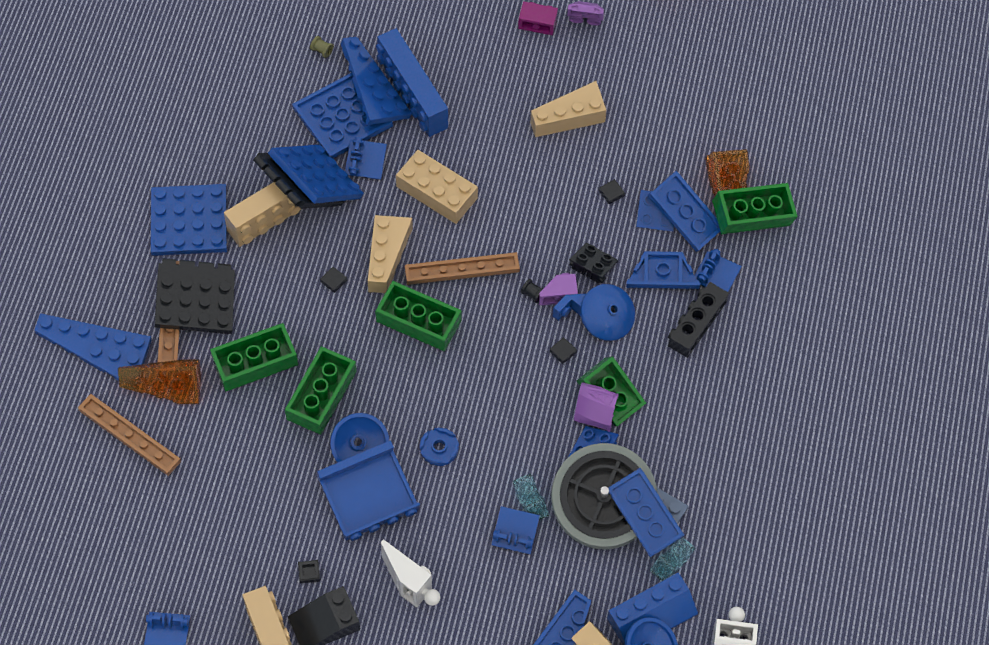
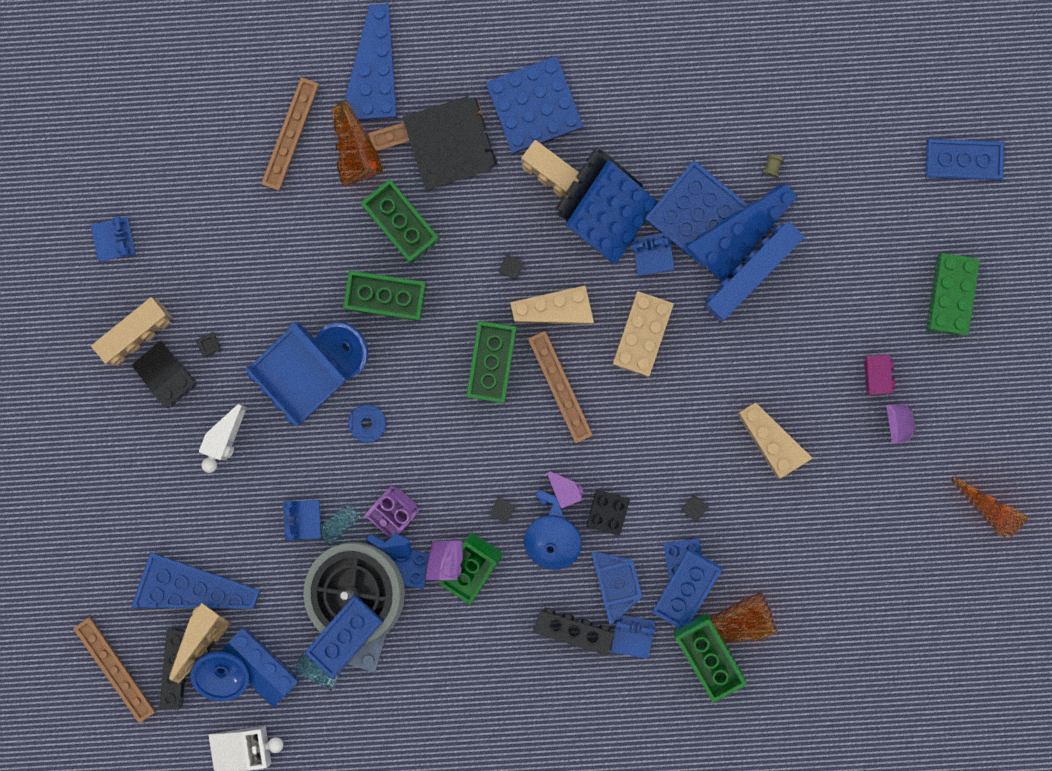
camera: 80 degrees right, 25 degrees up
(531, 290) = (556, 463): black bush -> none
(536, 445) = (392, 511): none -> medium lavender slope
(568, 445) = (394, 547): none -> blue slope

